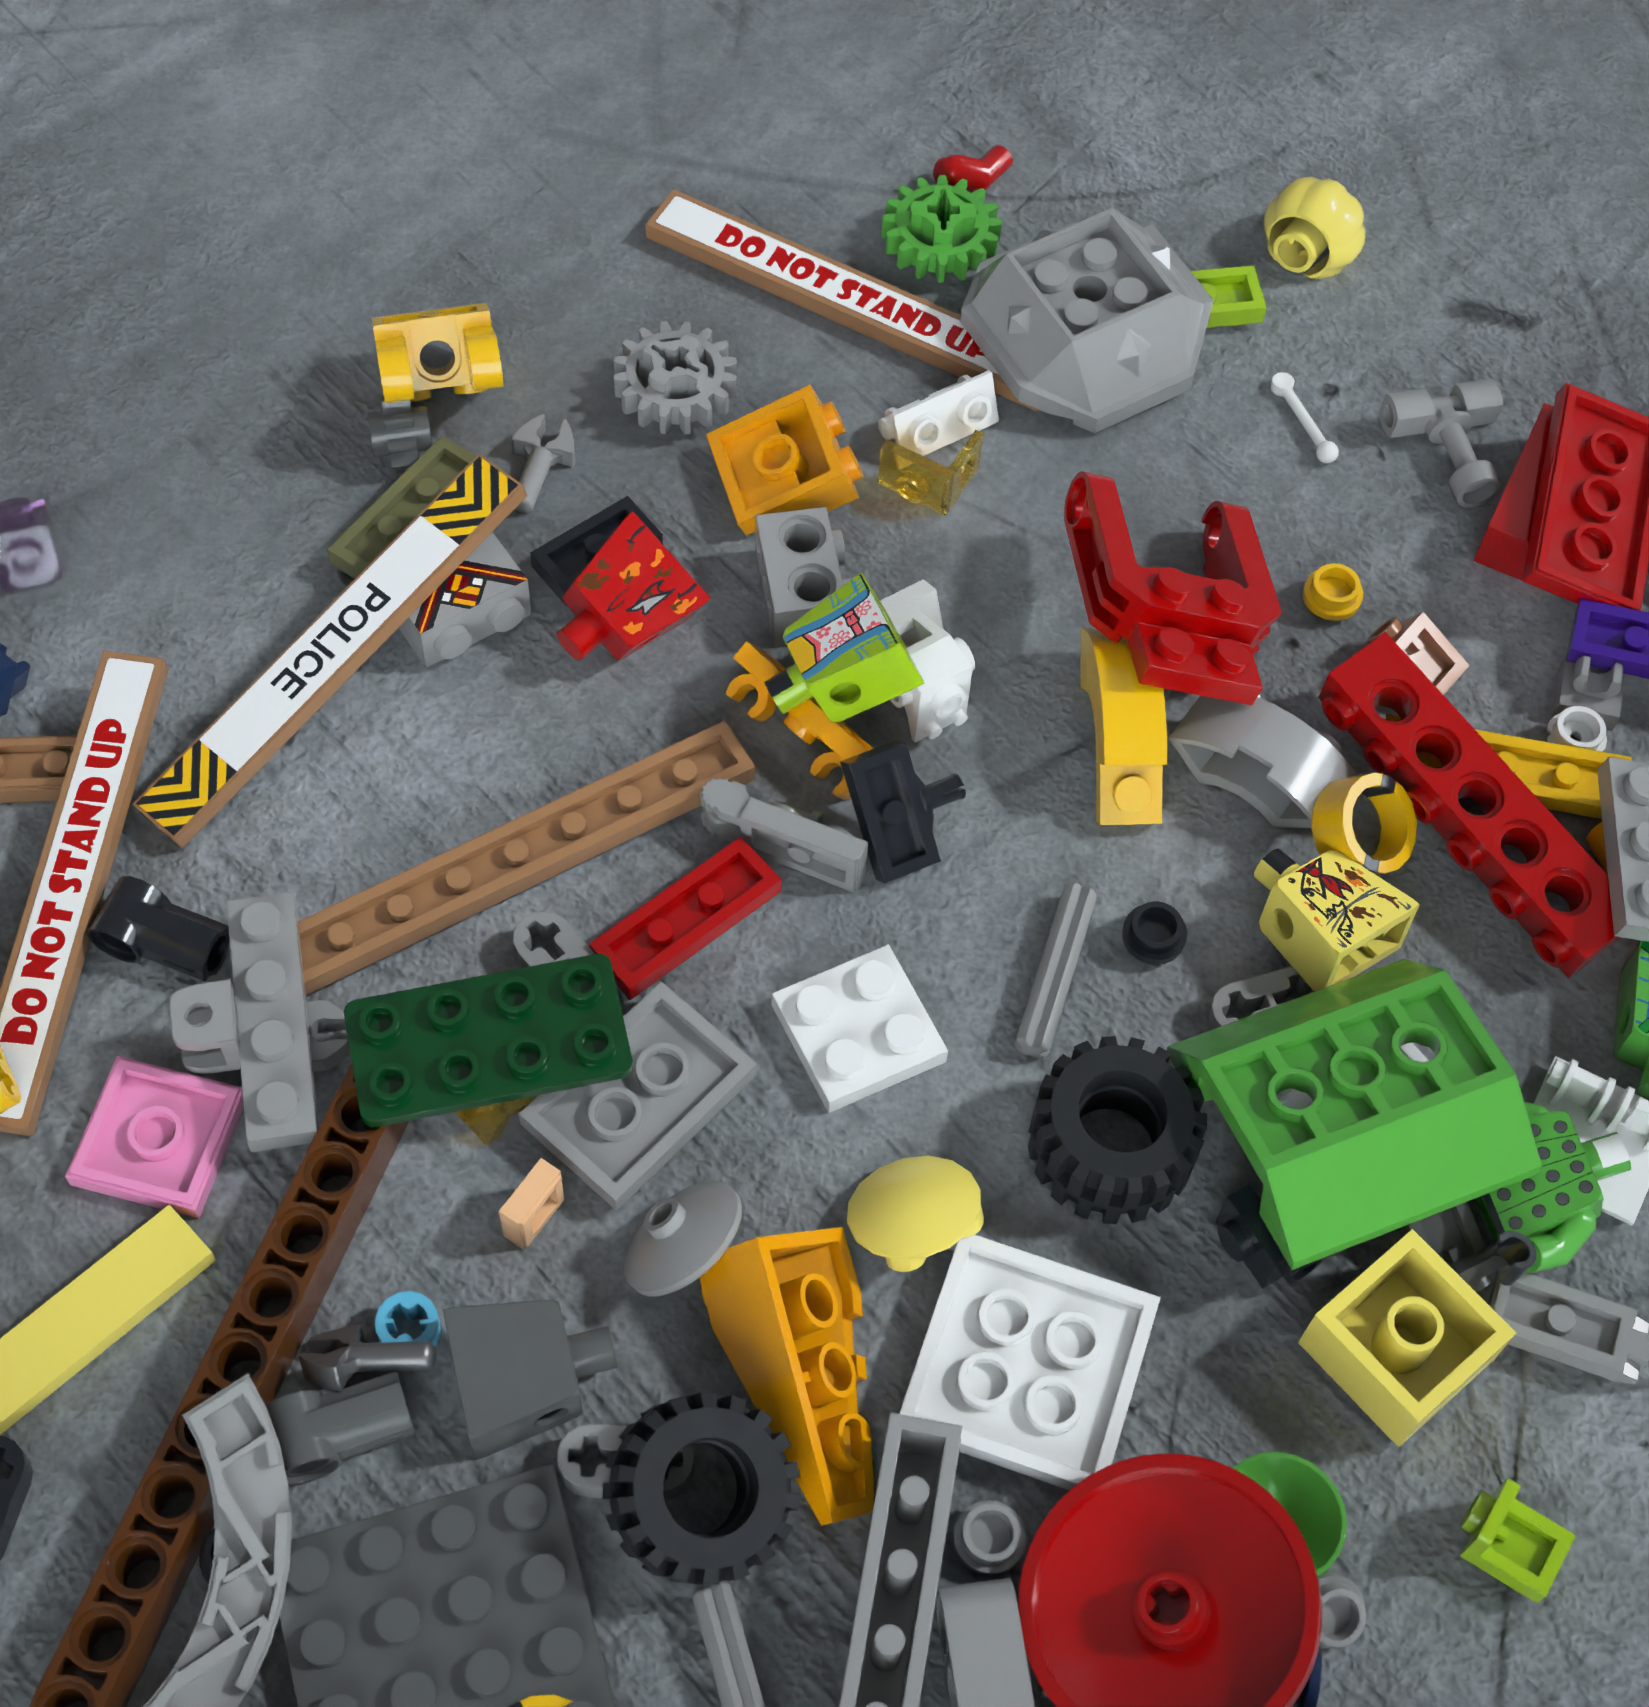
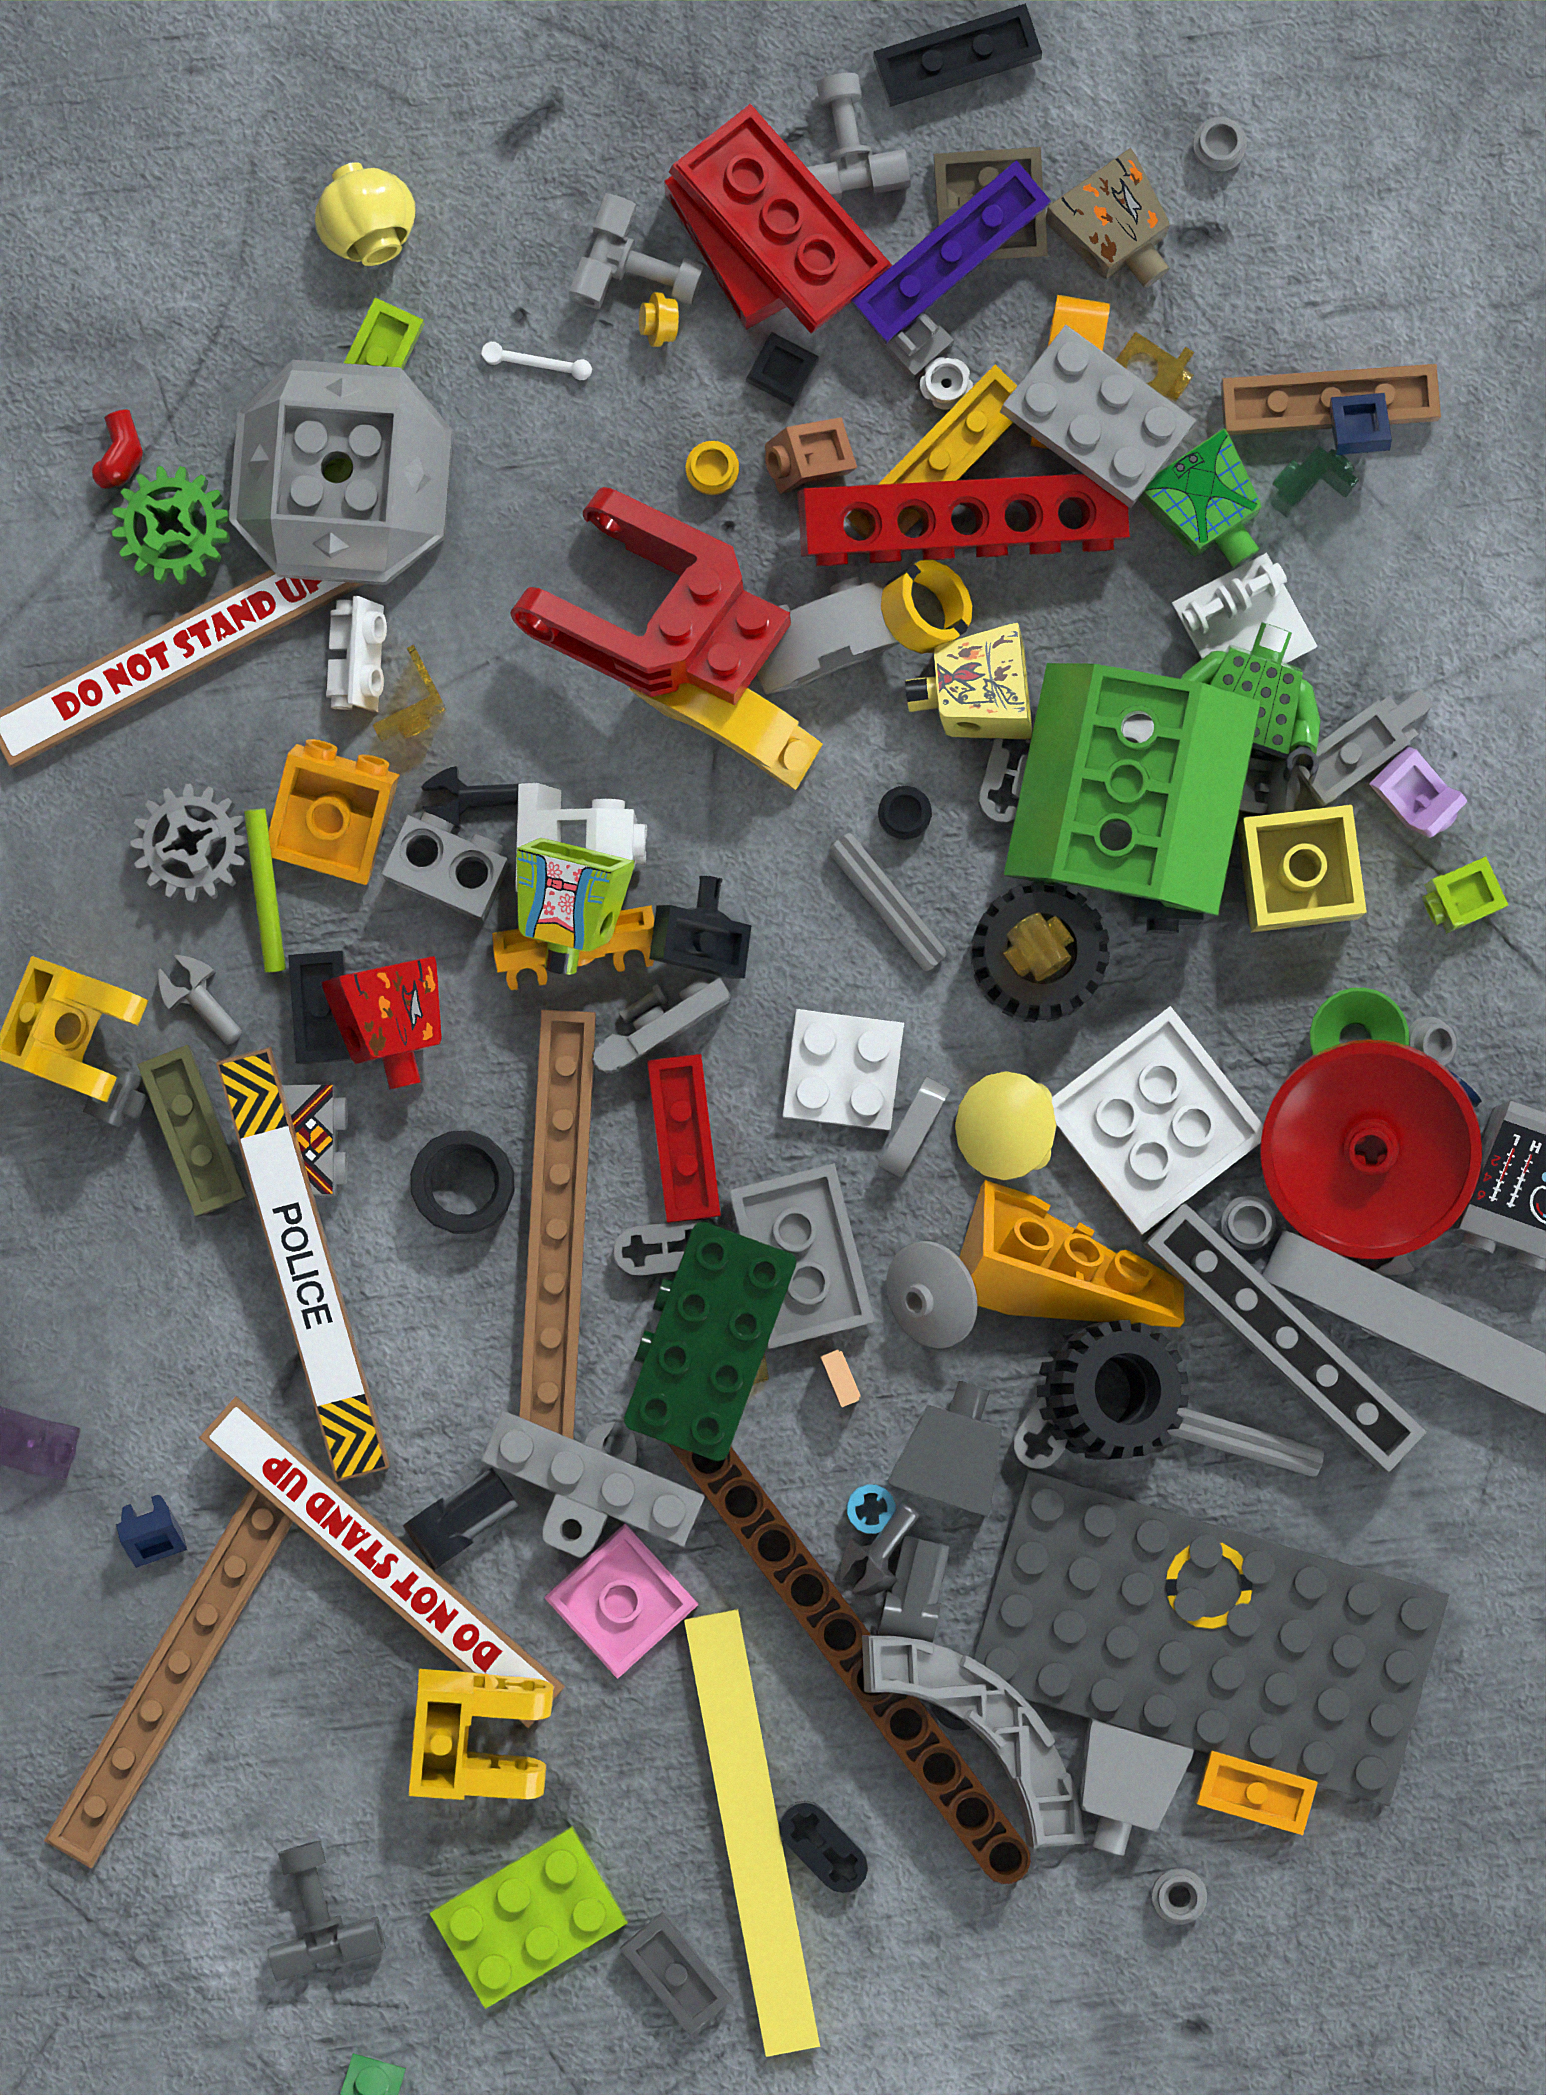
camera: 55 degrees left, 25 degrees up
(499, 710) = (421, 1182): none -> black tyre
(676, 447) = (264, 890): none -> lime bar
(848, 1122) = (914, 1127): none -> light grey beam
(884, 545) = (468, 795): none -> black bar
(1123, 1097) = (1038, 946): none -> clear yellow gear
(1423, 478) = (659, 319): none -> yellow plate
(1467, 602) = (782, 369): none -> black tile
(1577, 1417) = (1417, 794): none -> lavender bracket

